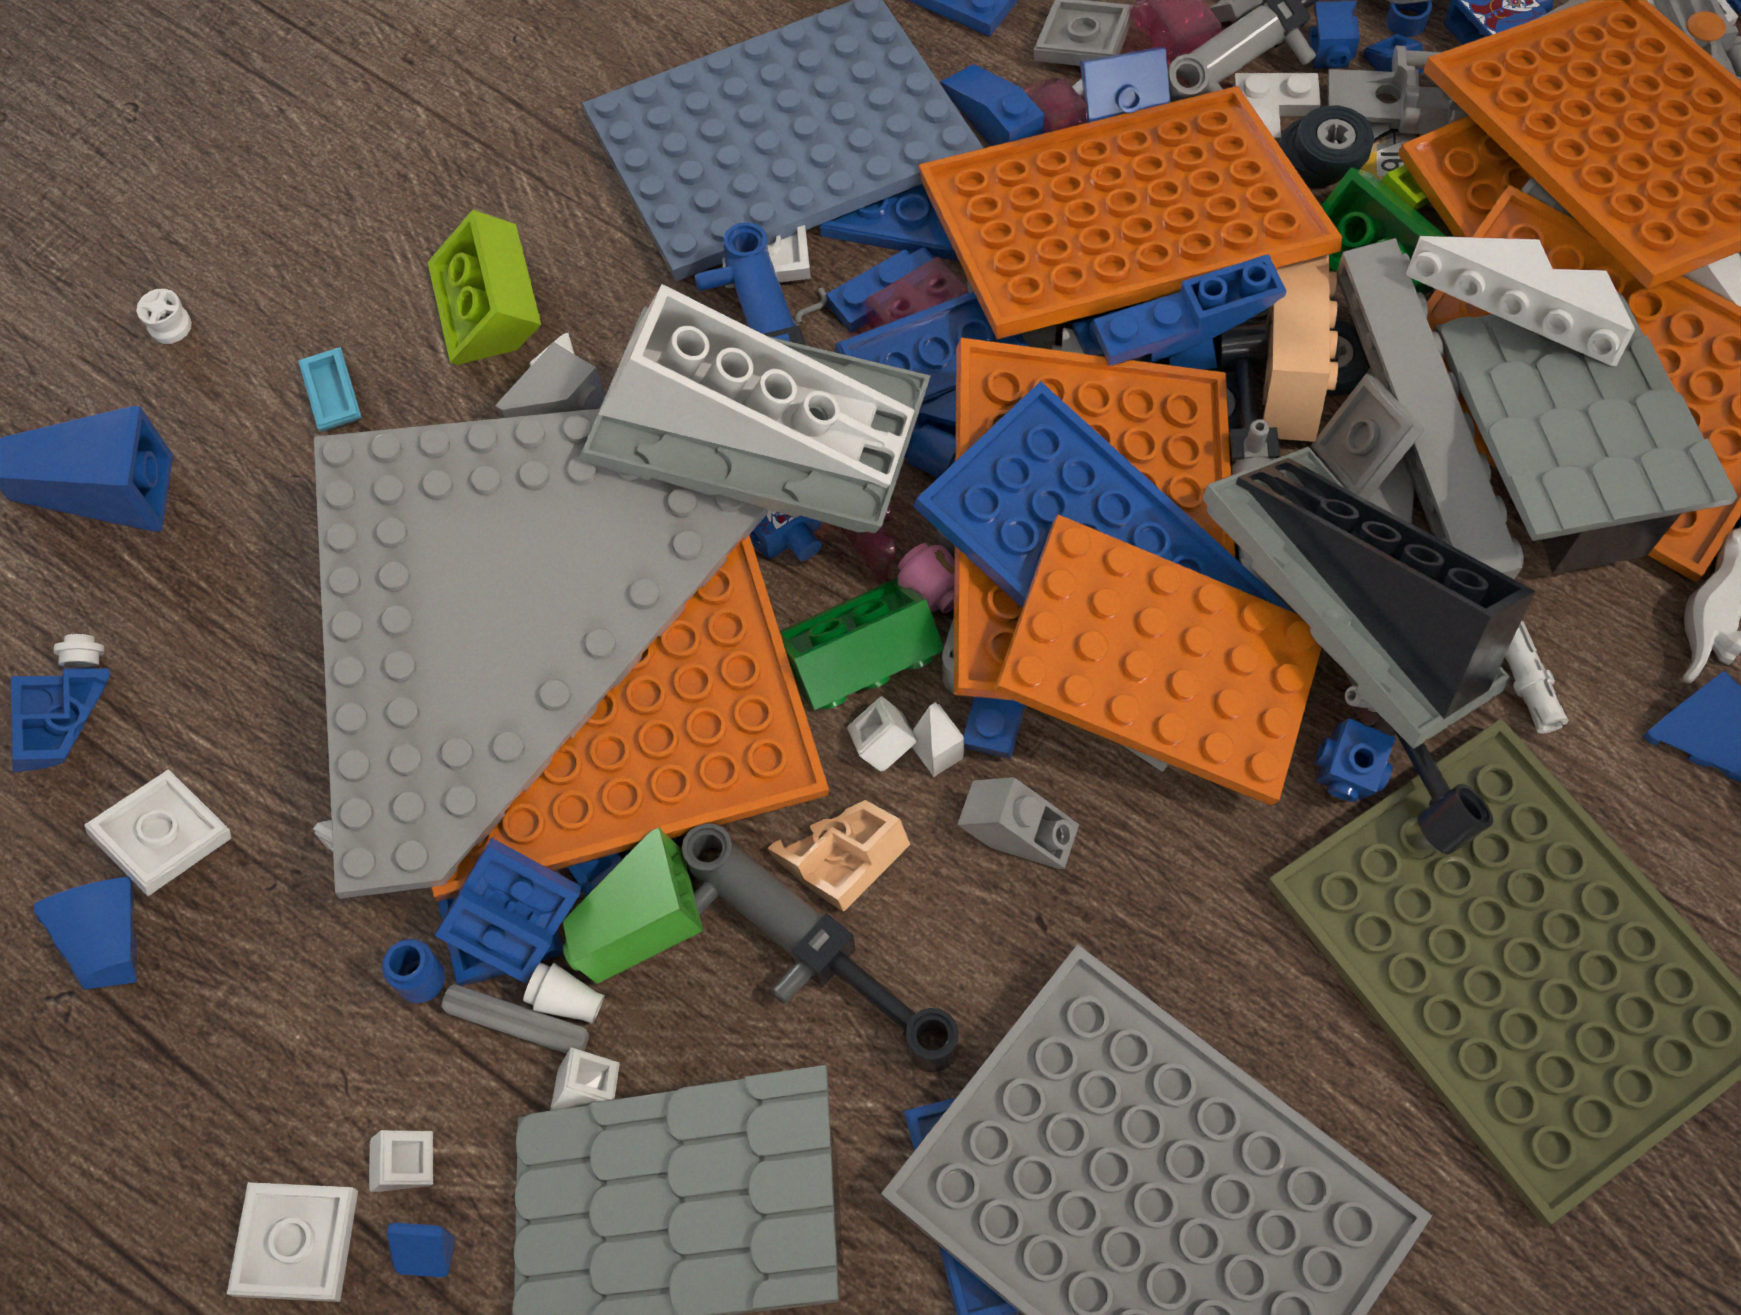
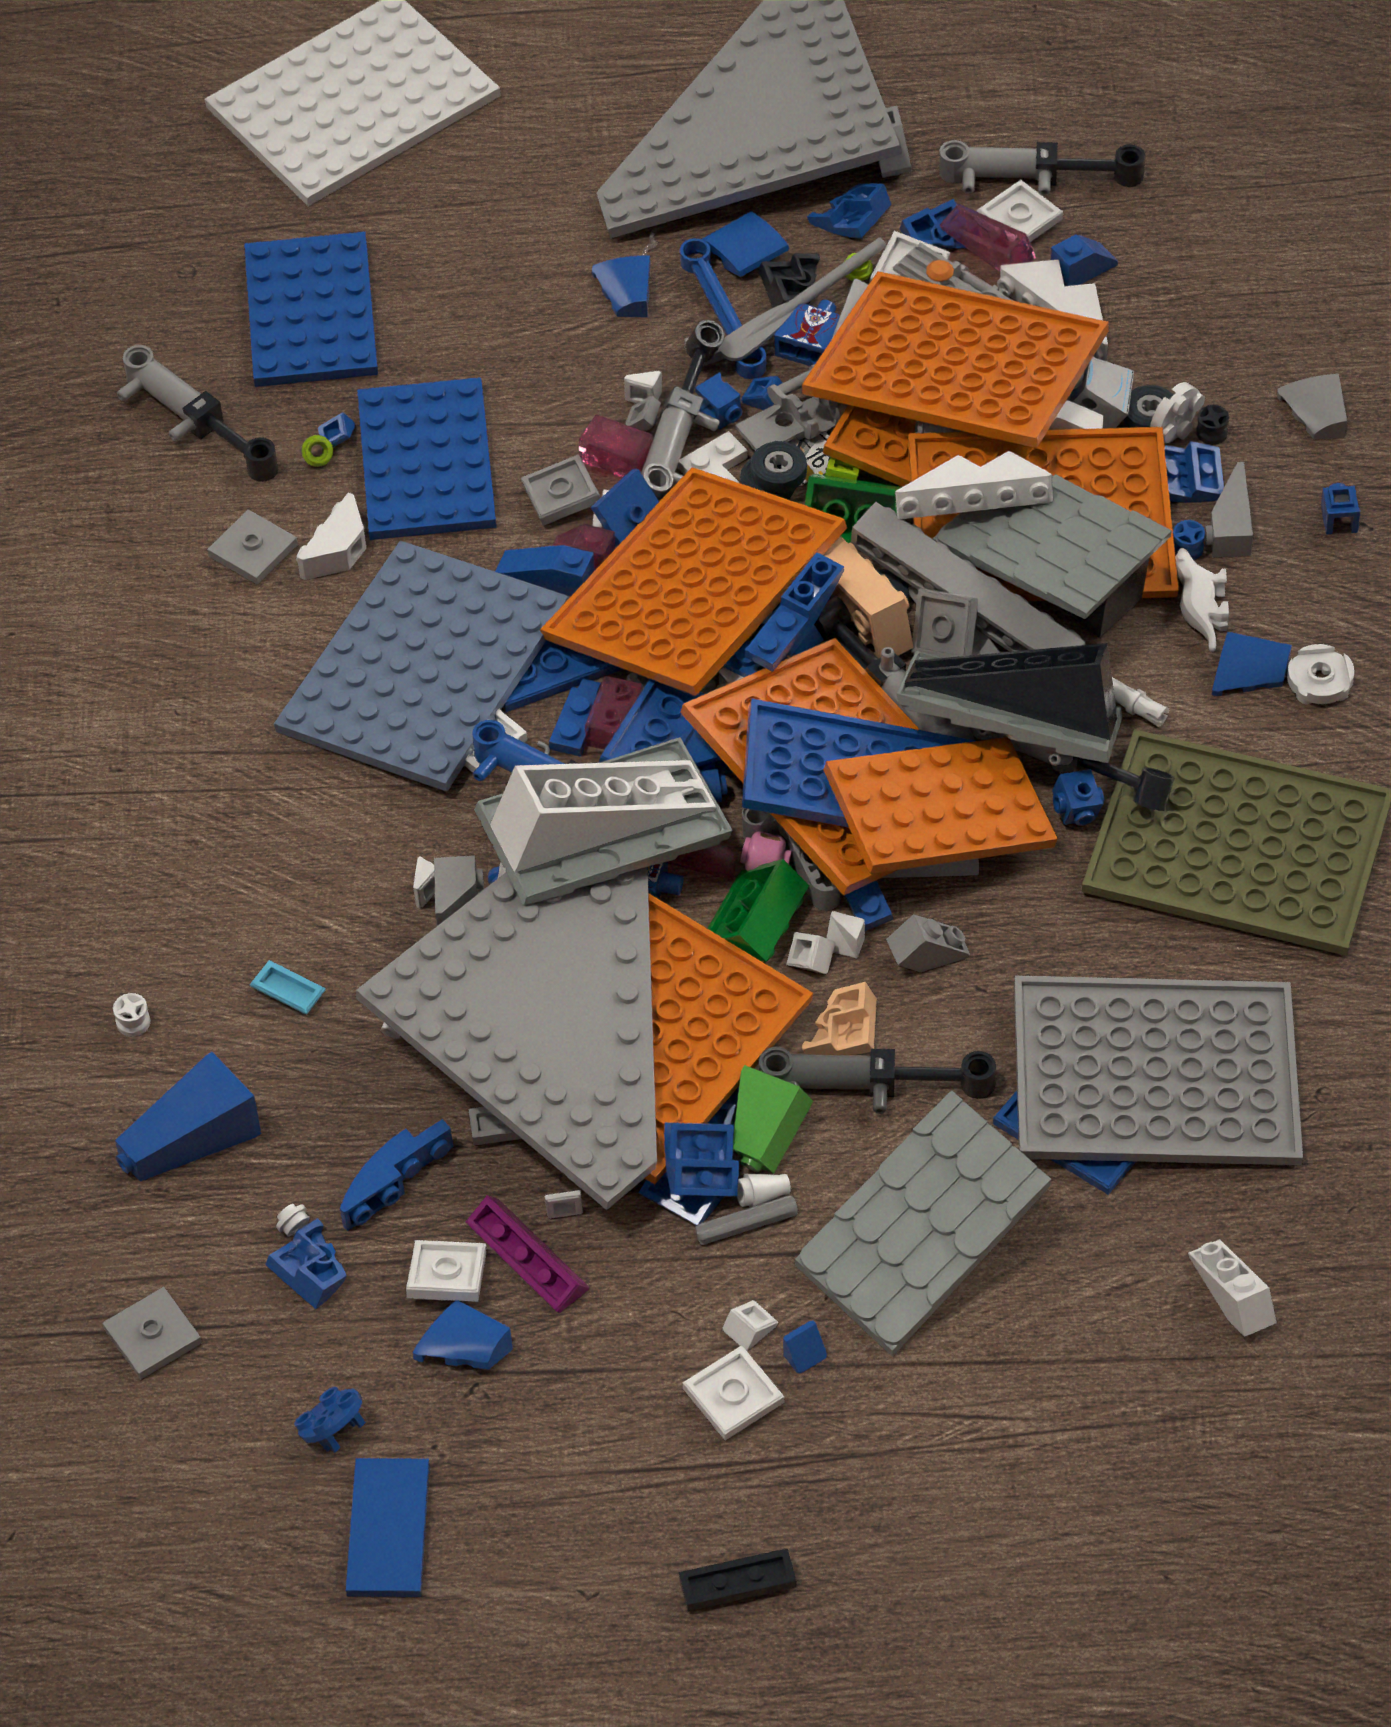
camera: 40 degrees left, 10 degrees down
(203, 669) = (382, 1176): none -> blue slope
(264, 876) = (526, 1254): none -> magenta slope
(413, 971) = (672, 1228): blue brick -> none
(483, 289) = (329, 871): lime slope -> none
(584, 1080) = (810, 1218): white slope -> none

